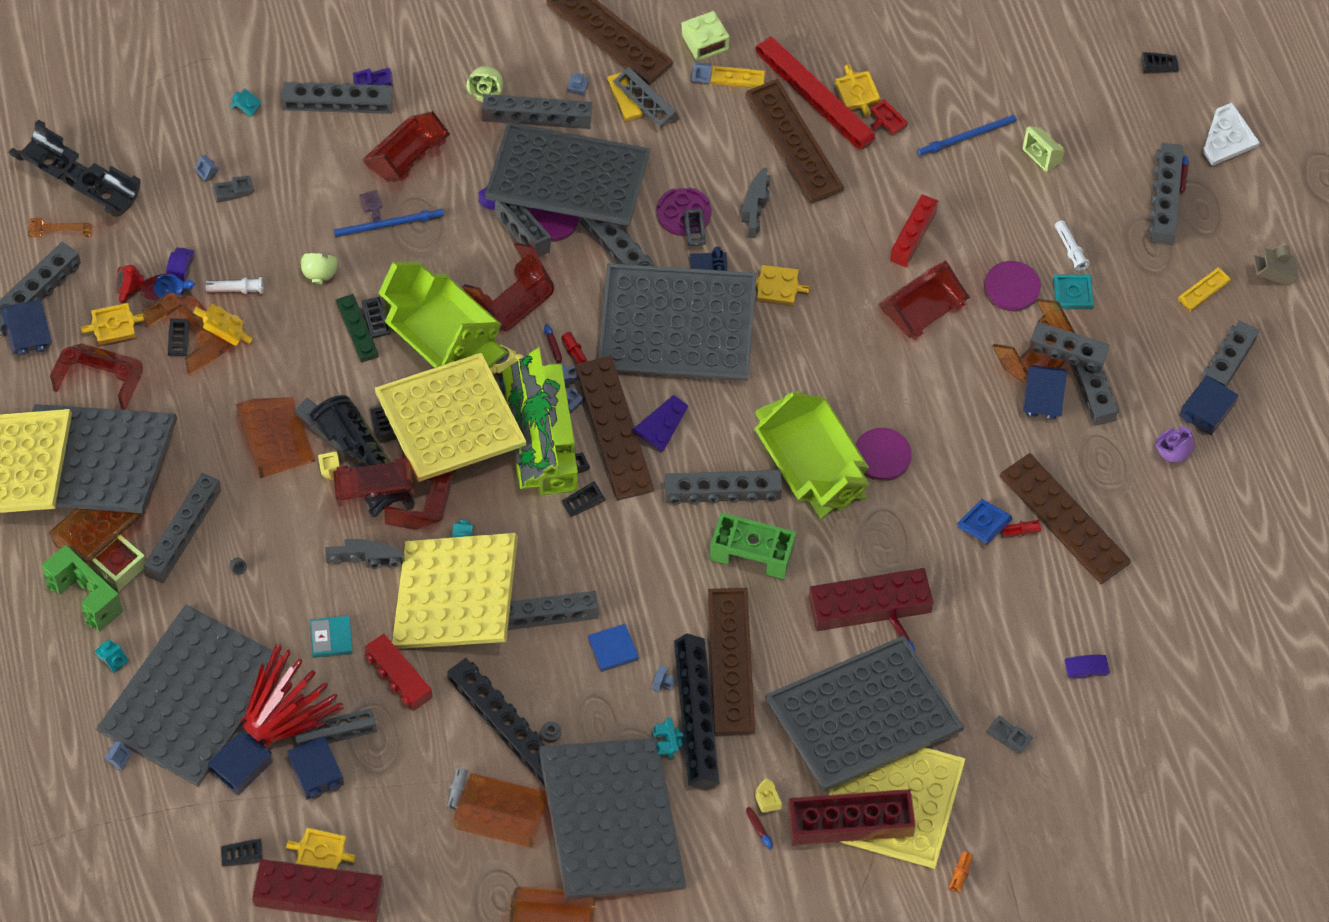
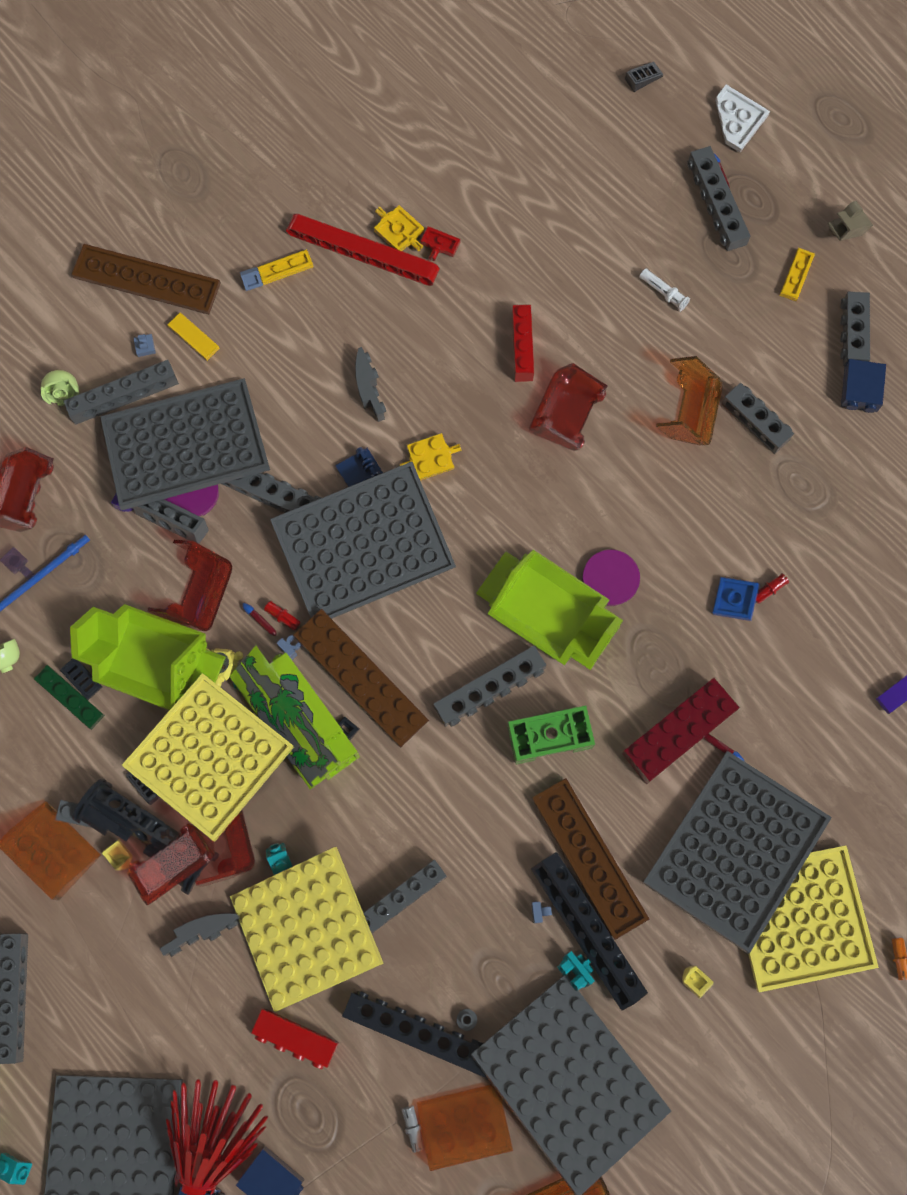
camera: 25 degrees left, 15 degrees up
(241, 569) = (82, 1009): dark grey hinge -> none
(331, 636) = (212, 1032): teal tile -> none
(341, 732) = (276, 1129): dark grey fence -> none
(574, 399) = (307, 667): sand blue tile -> none
(587, 490) = (379, 749): black slope -> none
(613, 647) = (477, 901): blue tile -> none
(647, 94) = (216, 323): dark grey fence -> none
(661, 423) = (402, 652): dark purple wing -> none
(674, 202) = (307, 425): magenta tile -> none
(694, 213) = (324, 423): black slope -> none
(705, 36) = (235, 240): yellowish green piece -> none
(759, 827) = (715, 1021): dark red piece -> none
(794, 141) = (369, 306): reddish brown plate -> none
(851, 817) = (786, 967): dark red brick -> none
(936, 146) = (496, 249): blue bar -> none
(1009, 735) = (868, 798): dark grey slope -> none
(1012, 285) = (634, 353): magenta tile -> none
(1042, 148) = (591, 207): yellowish green slope -> none
(1044, 391) = (722, 445): dark blue brick -> none
(1062, 339) = (750, 385): dark grey brick -> none
(1065, 518) = (800, 558): reddish brown plate -> none
(1073, 291) = (689, 332): teal tile -> none
(1176, 445) = (859, 438): medium lavender cylinder -> none

